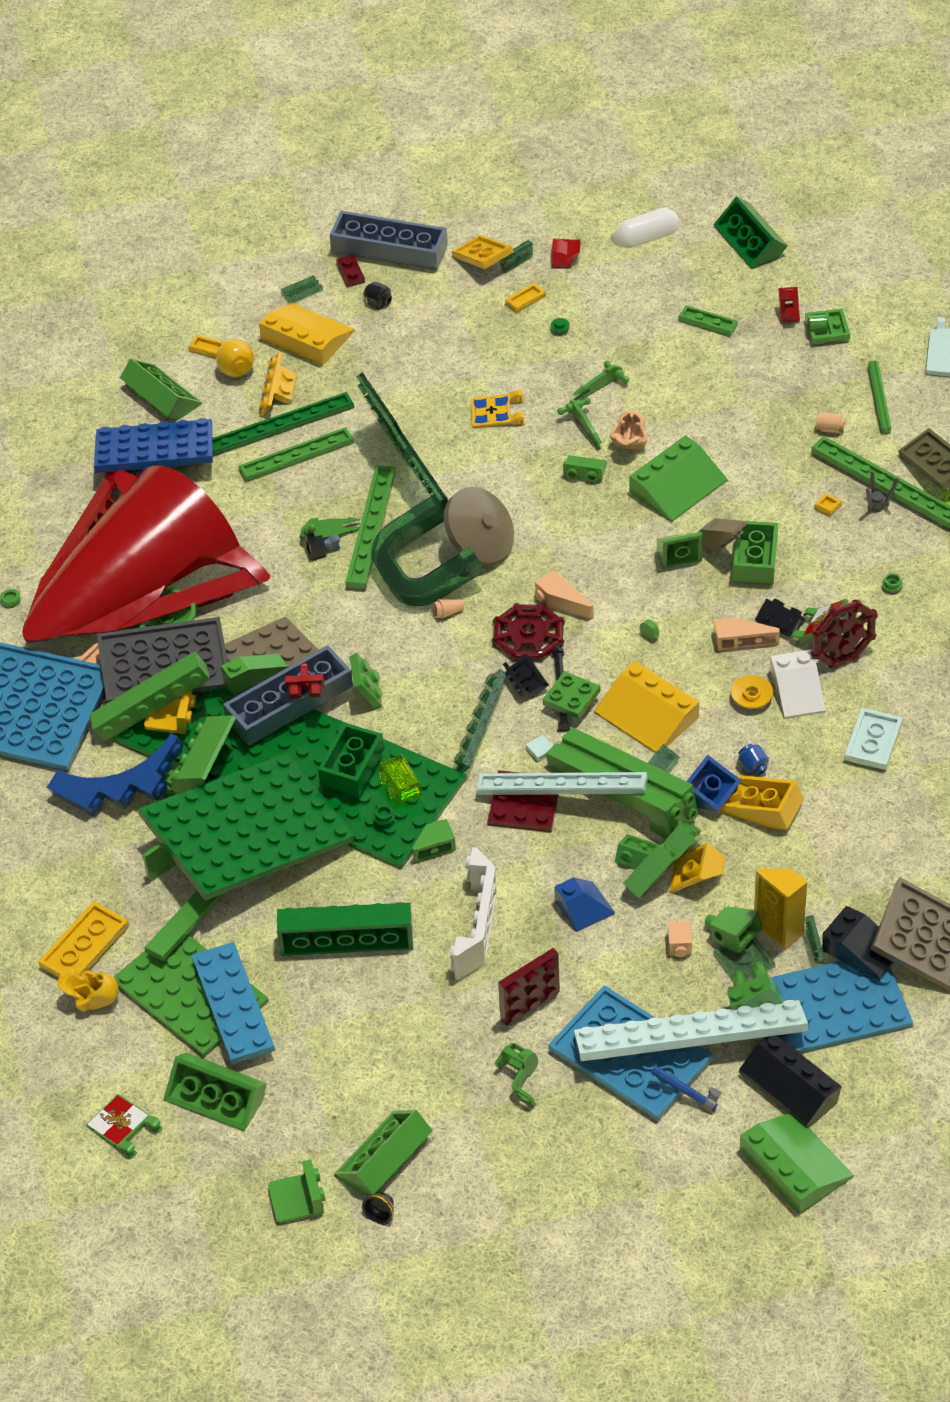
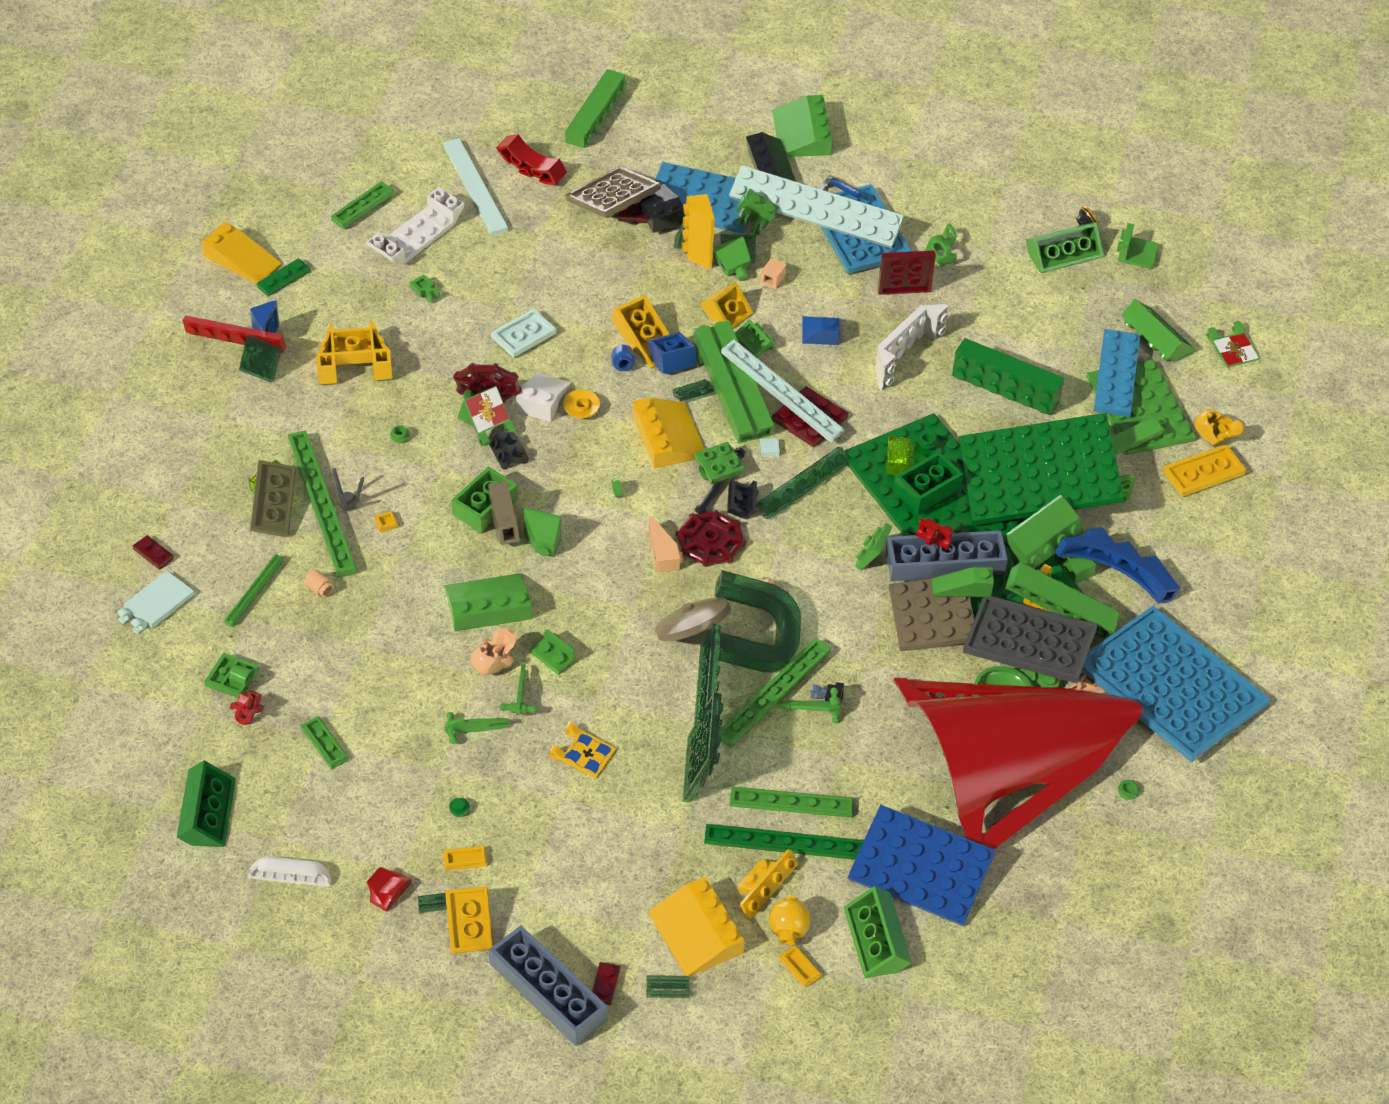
camera: 155 degrees left, 0 degrees up
(377, 295) = (602, 932): black head -> none
(434, 841) = (899, 414): bright green slope -> none
(663, 858) = (752, 308): bright green arch -> none
(740, 633) = (551, 449): light nougat slope -> none

